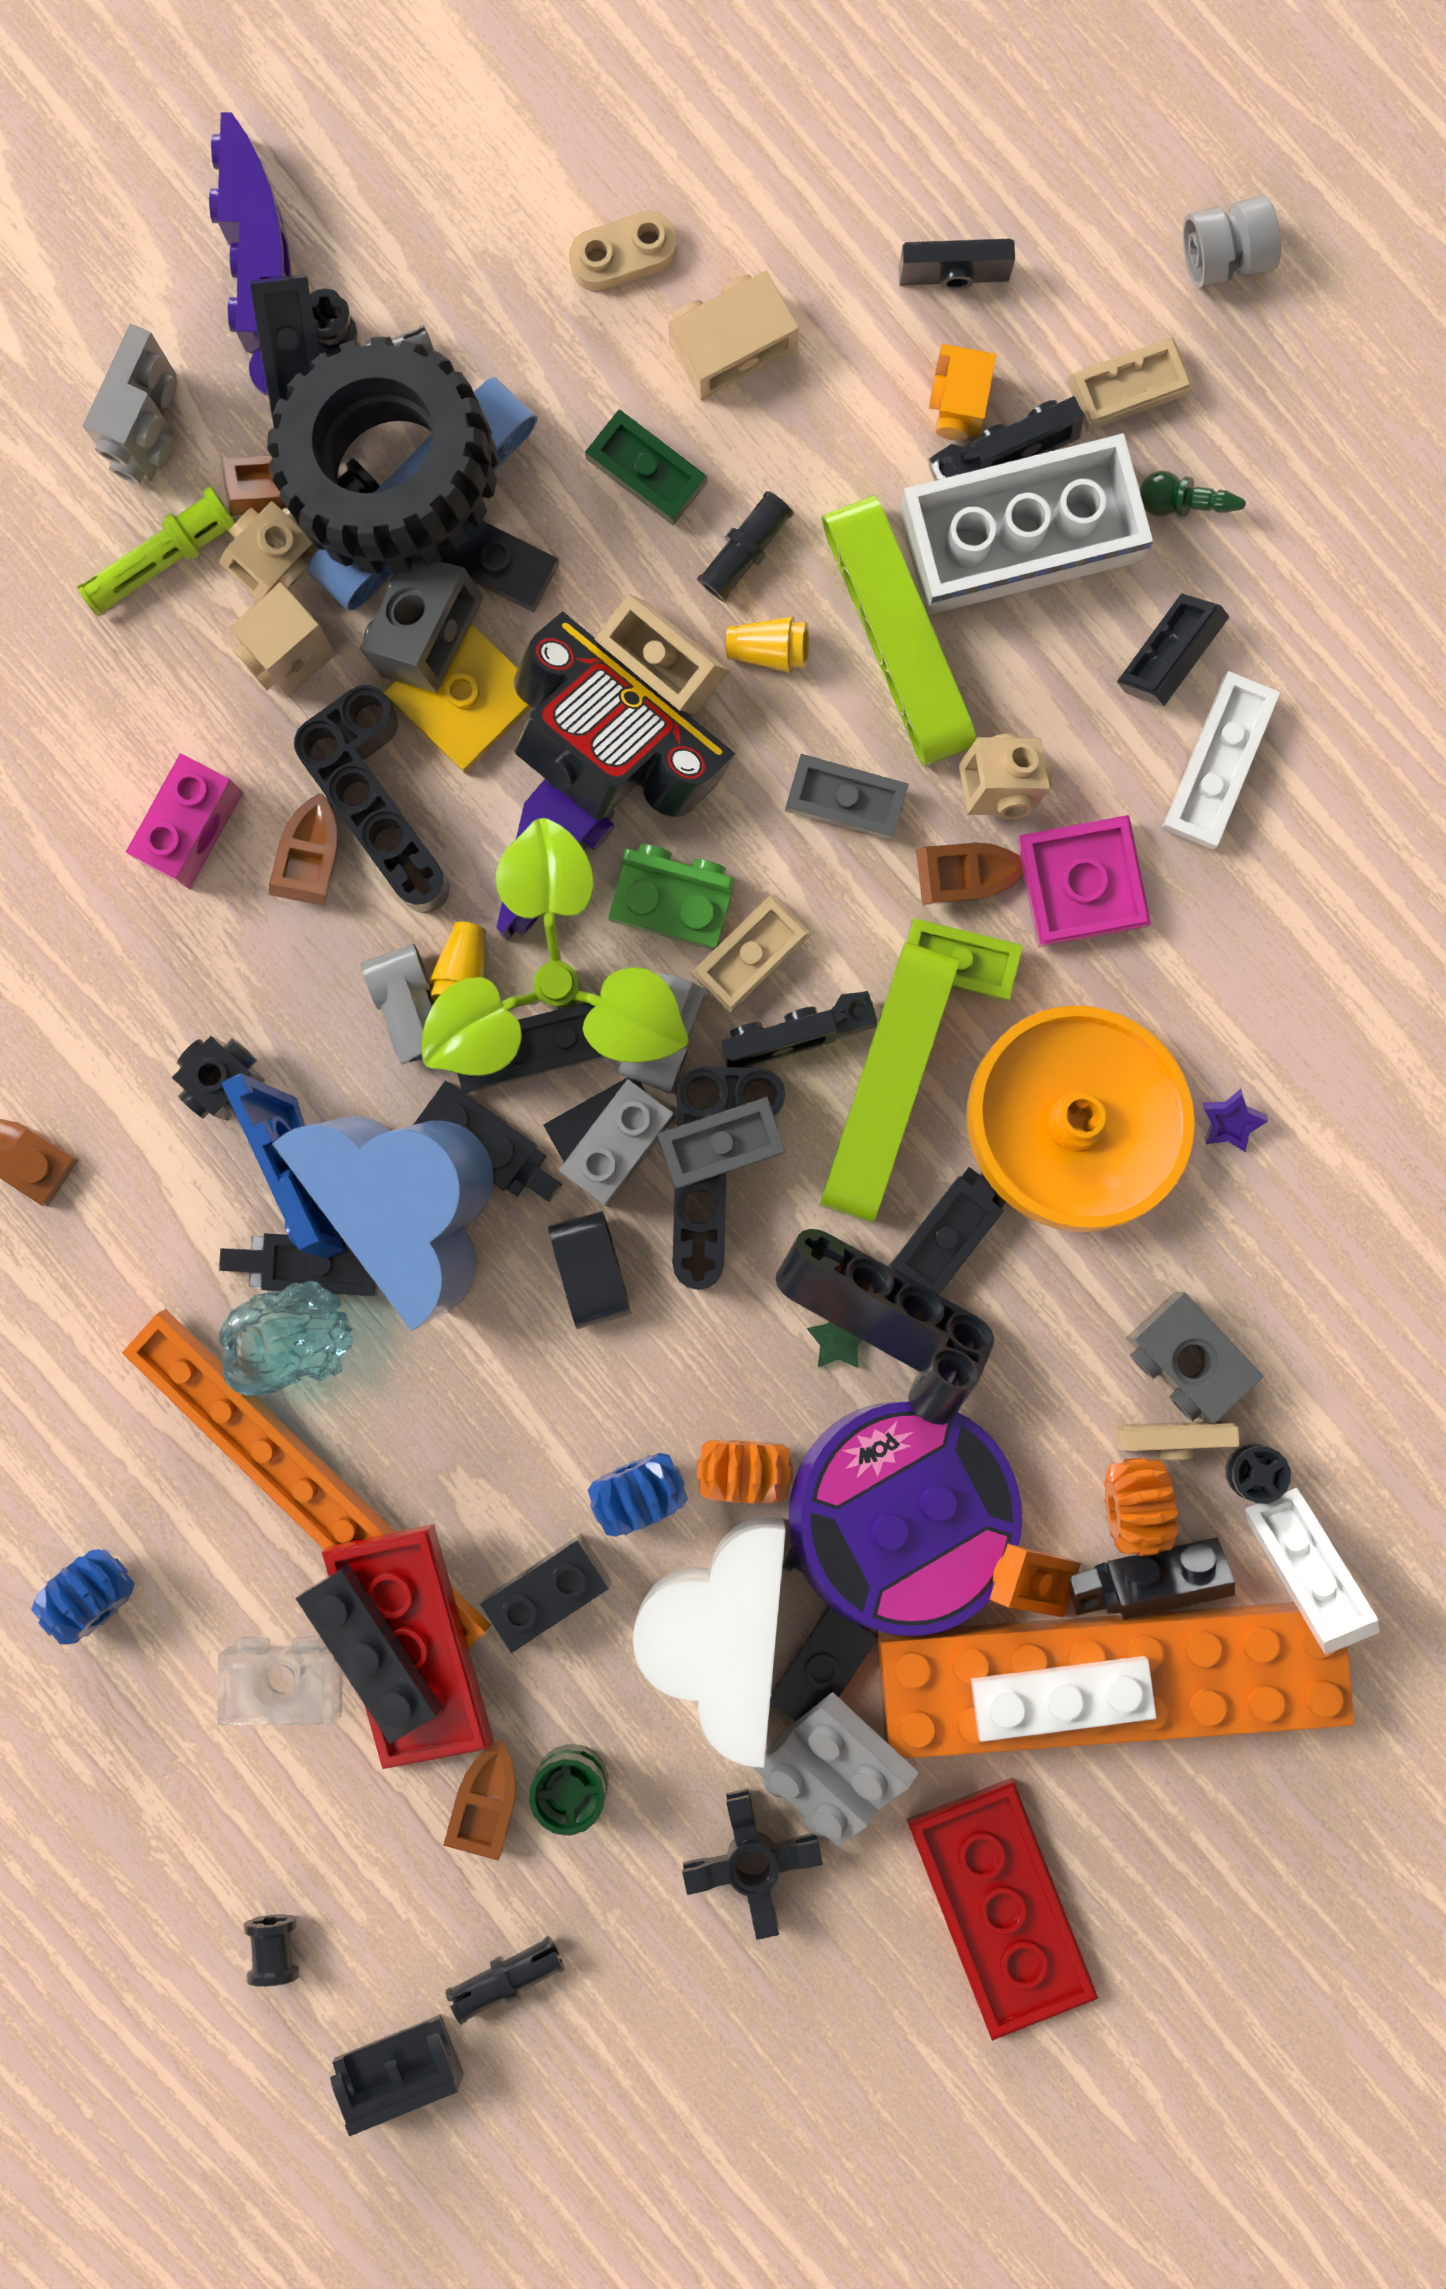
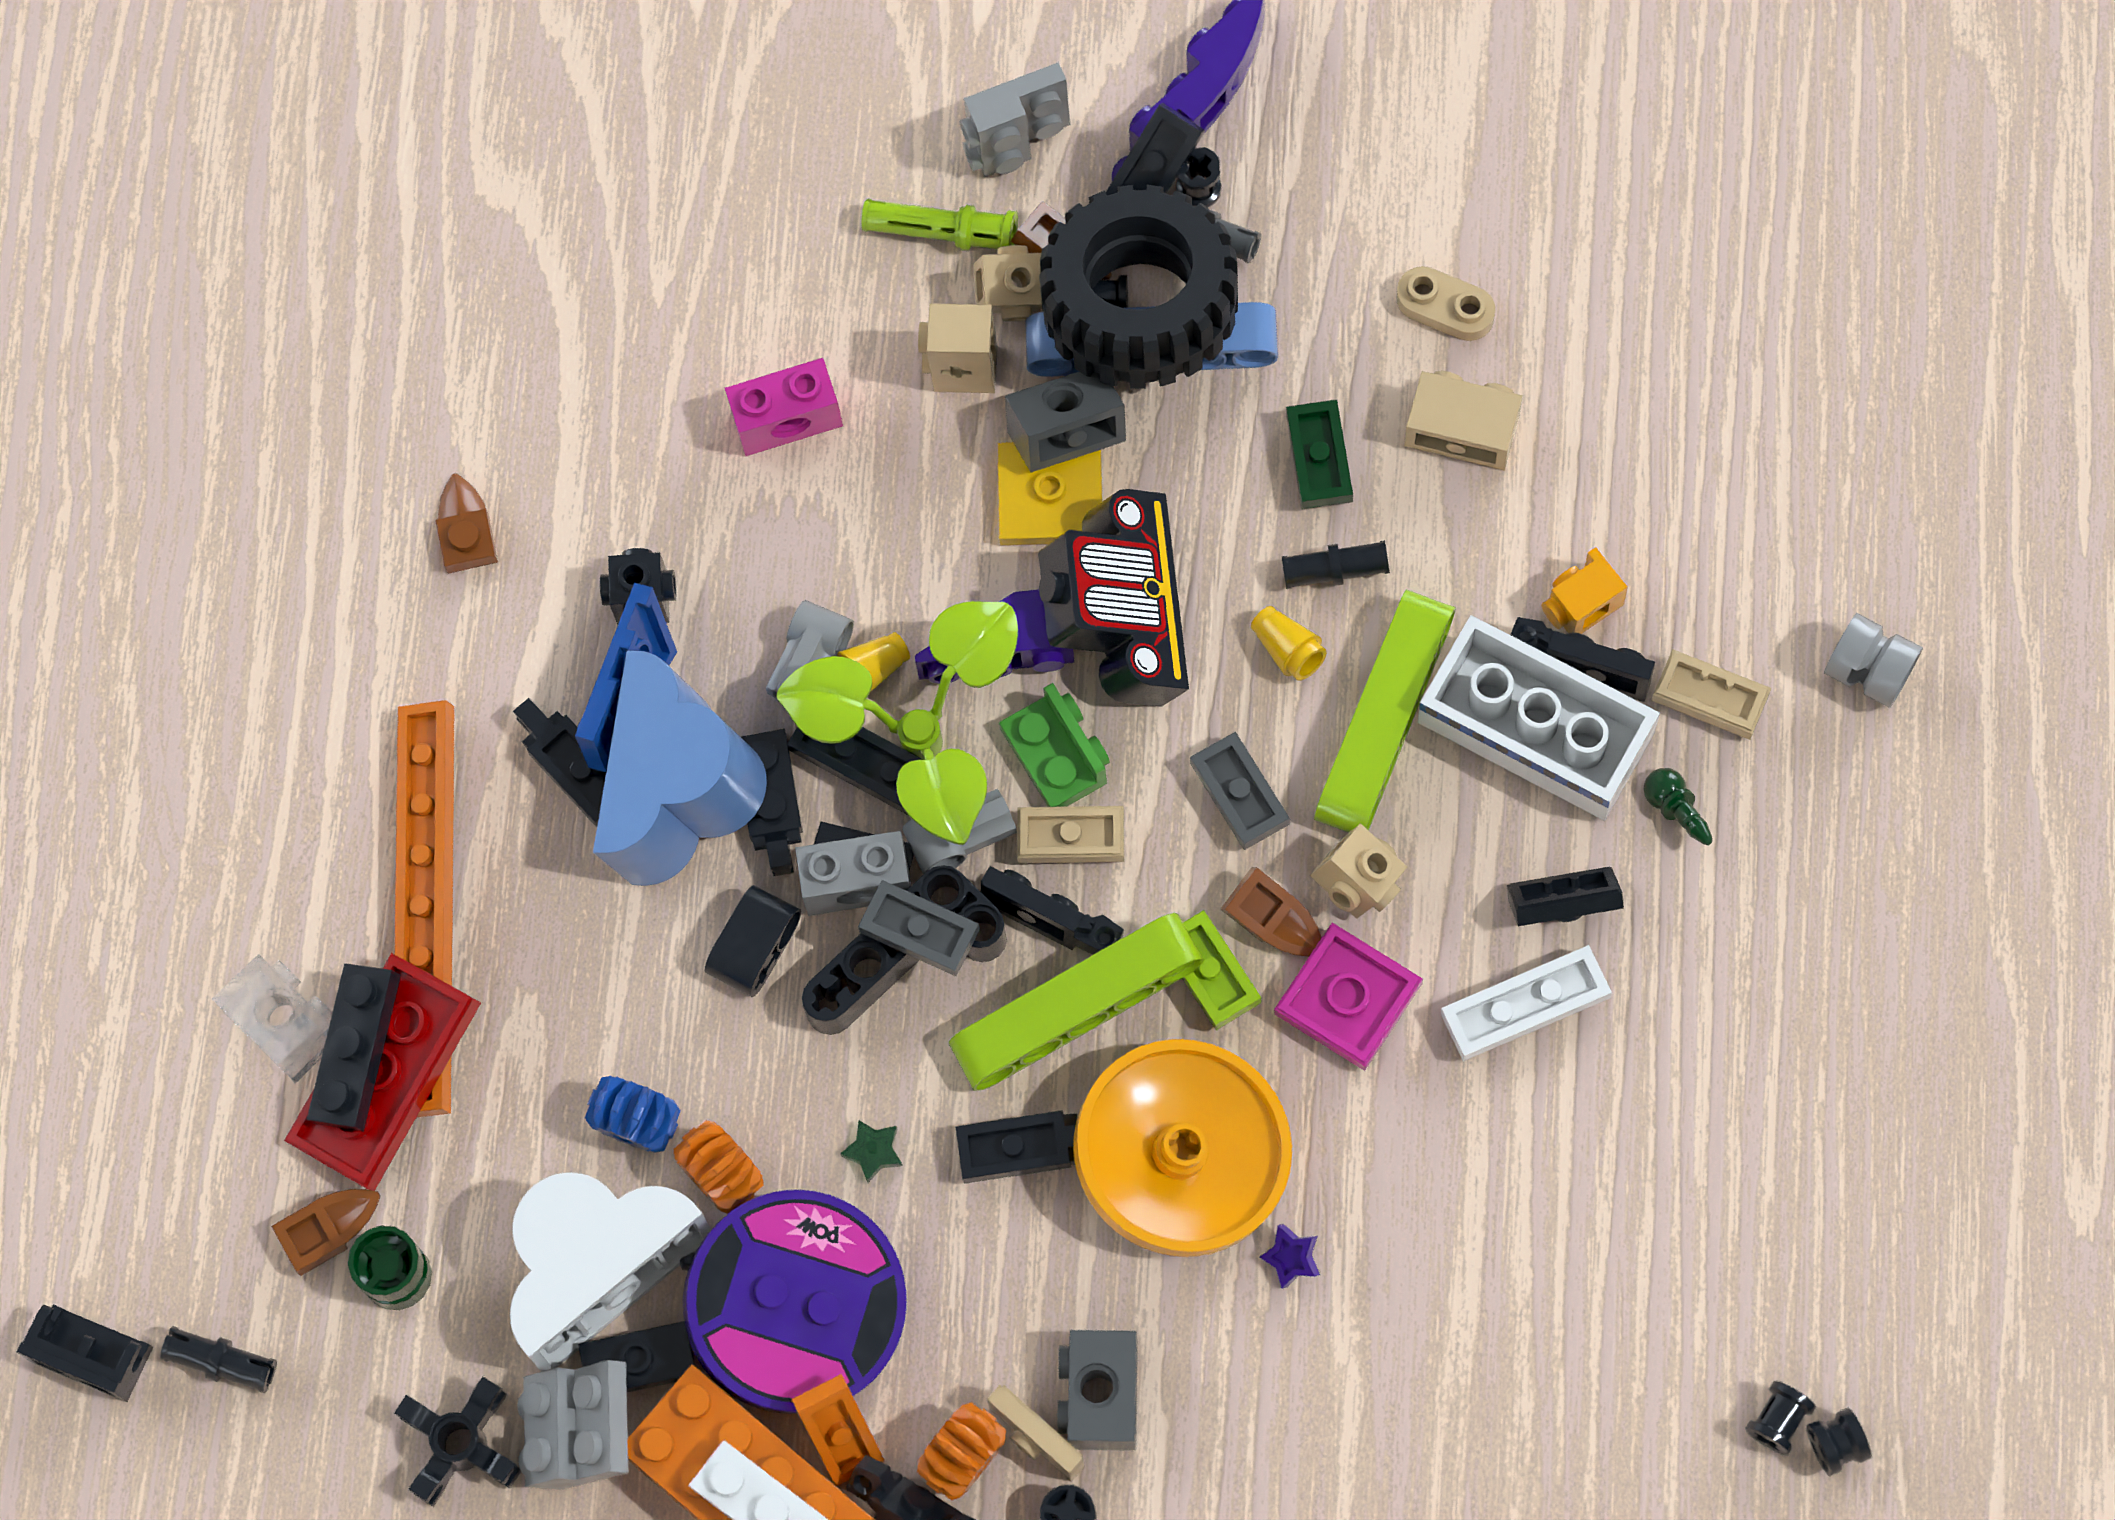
camera: 50 degrees right, 15 degrees down
(82, 1596) = (213, 836): blue gear -> none
(271, 1950) = (92, 1187): black bush -> none
(284, 1338) = (509, 793): clear light blue hair -> none
(306, 854) = (841, 500): dark orange plate -> none
(378, 810) = (919, 512): black beam -> none
(503, 564) = (1160, 430): black plate -> none
(546, 1593) = (508, 1124): black brick -> none
(661, 654) = (1204, 581): tan brick -> none
(894, 1316) = (923, 1159): black beam -> none
(956, 262) = (1665, 507): black plate -> none

